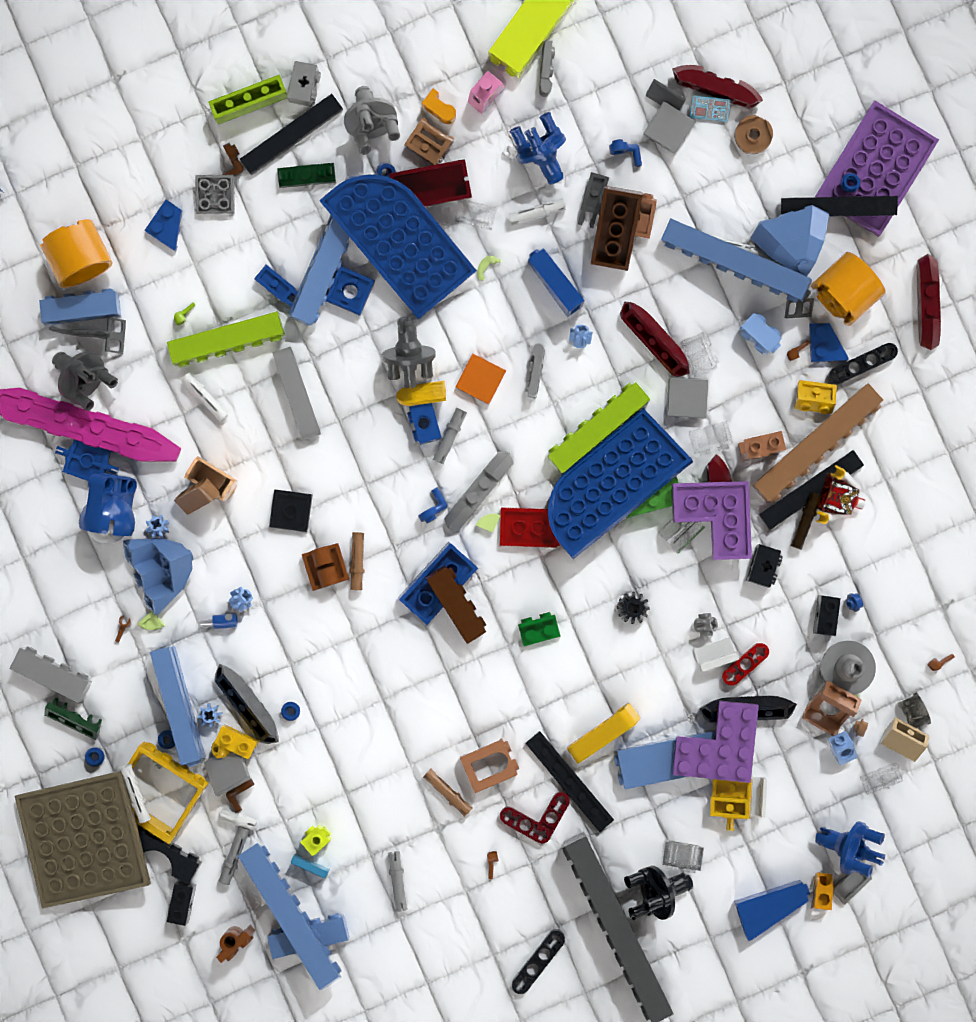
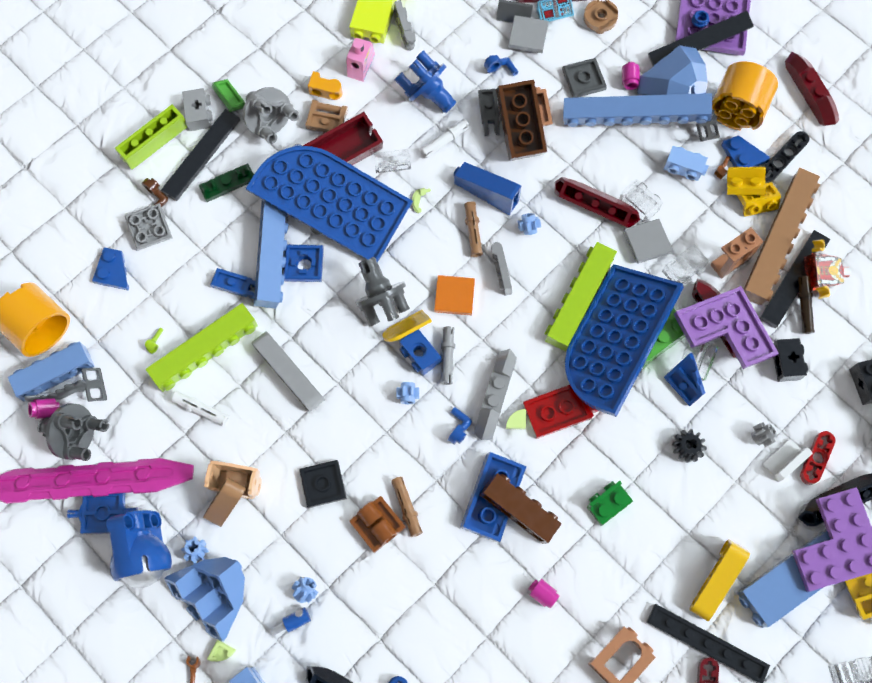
camera: 25 degrees left, 15 degrees down
(63, 342) = (42, 408): none -> dark pink brick
(340, 79) = (228, 95): none -> bright green tile
(398, 458) = (407, 393): none -> light blue gear
(446, 684) = (543, 593): none -> dark pink brick
(531, 298) = (473, 229): none -> medium nougat pin
(658, 548) = (686, 380): none -> blue wing
(705, 198) = (584, 78): none -> dark grey tile
(751, 216) = (630, 75): none -> dark pink brick
(810, 376) = (746, 181): none -> yellow bracket

